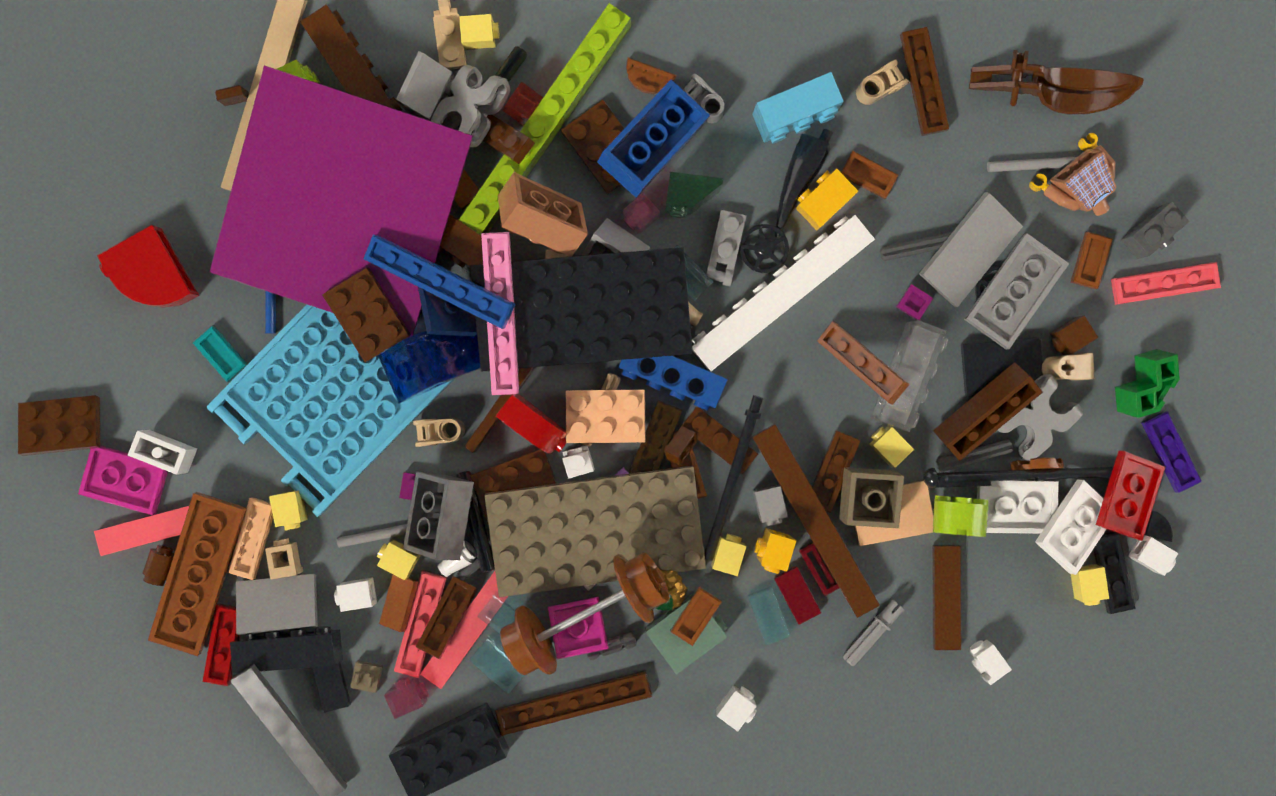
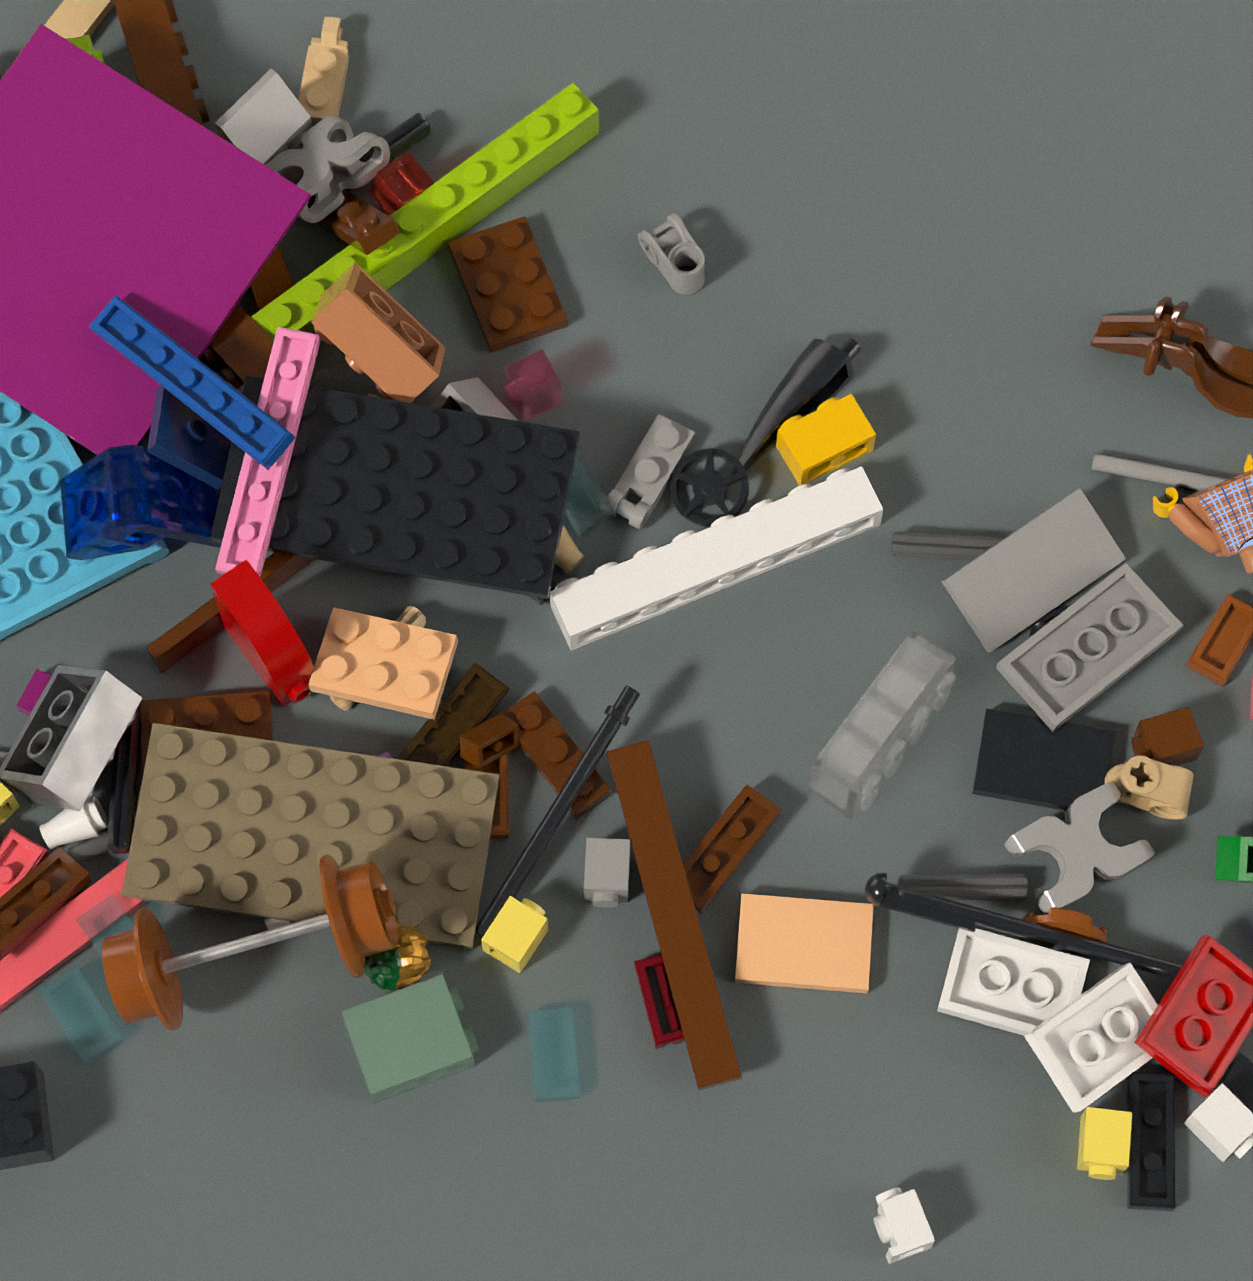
camera: 20 degrees right, 20 degrees down
(366, 314) = (62, 410): reddish brown plate -> none
(434, 431) = (105, 619): tan piece -> none
(478, 31) = (369, 79): light yellow brick -> none
(573, 703) = (186, 1110): reddish brown tile -> none
(578, 461) = (318, 723): white brick -> none
(582, 637) = (234, 989): dark pink tile -> none
(615, 645) = (277, 1031): flat silver axle -> none
(646, 77) = (603, 207): dark orange tile -> none
(653, 138) = (581, 279): blue brick -> none
(690, 192) = (616, 370): clear green slope -> none
(695, 616) = (431, 1004): dark orange tile -> none
(712, 383) = (535, 635): blue brick -> none
(737, 707) = (456, 1186): white brick -> none
(775, 550) = (592, 936): yellow brick -> none
(797, 108) = (813, 295): medium azure brick -> none
(797, 595) = (611, 1034): dark red tile -> none
(863, 363) = (813, 680): dark orange tile -> none
(869, 175) = (903, 425): dark orange tile -> none
(871, 497) = (771, 892): dark tan brick -> none
(873, 633) = (720, 1127): light grey axle -> none
(884, 81) = (962, 296): tan piece -> none
(890, 446) = (828, 832): light yellow brick -> none
(914, 302) = (927, 620): magenta plate -> none
(924, 81) = (1022, 314): reddish brown plate -> none
(946, 597) = (859, 1105): reddish brown tile -> none
(960, 516) = (911, 965): lime brick -> none
(987, 411) = (996, 811): reddish brown brick -> none

